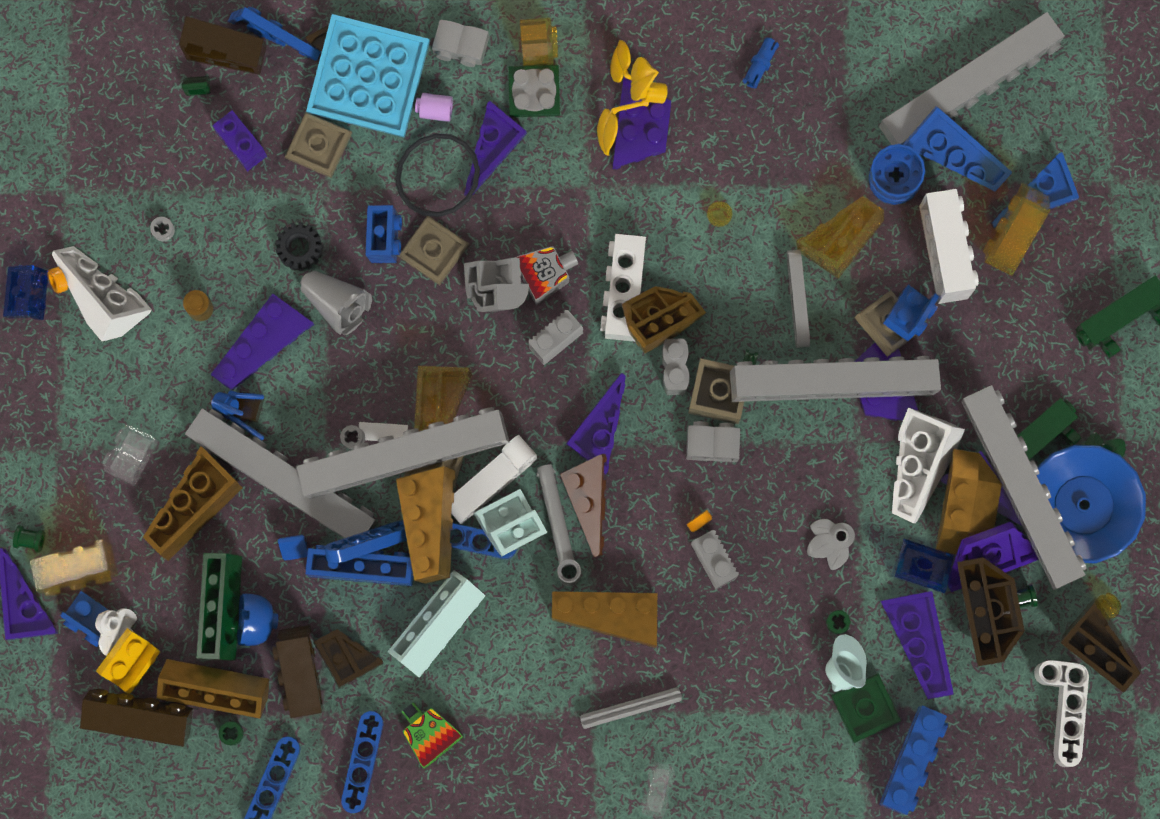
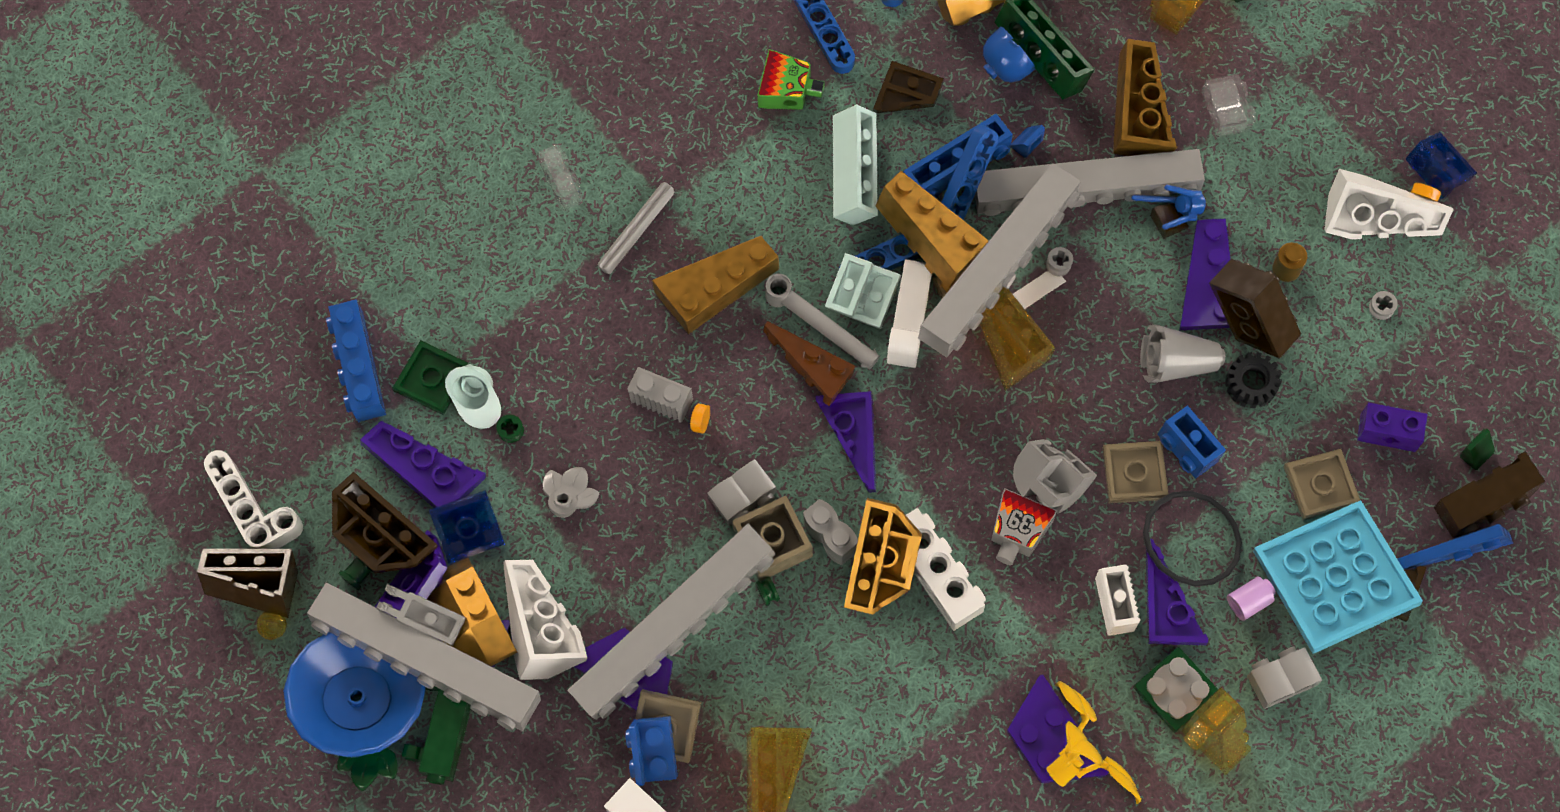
camera: 145 degrees right, 10 degrees down
(259, 280) = (1255, 308): none -> dark brown brick
(298, 672) = (938, 47): dark brown wedge -> none
(525, 170) = (1117, 600): none -> white brick
(555, 337) = (960, 474): light grey brick -> none
(719, 214) = (906, 709): clear yellow plate -> none
(798, 298) = (769, 684): light grey beam -> none
(1005, 512) = (424, 615): none -> light grey hinge

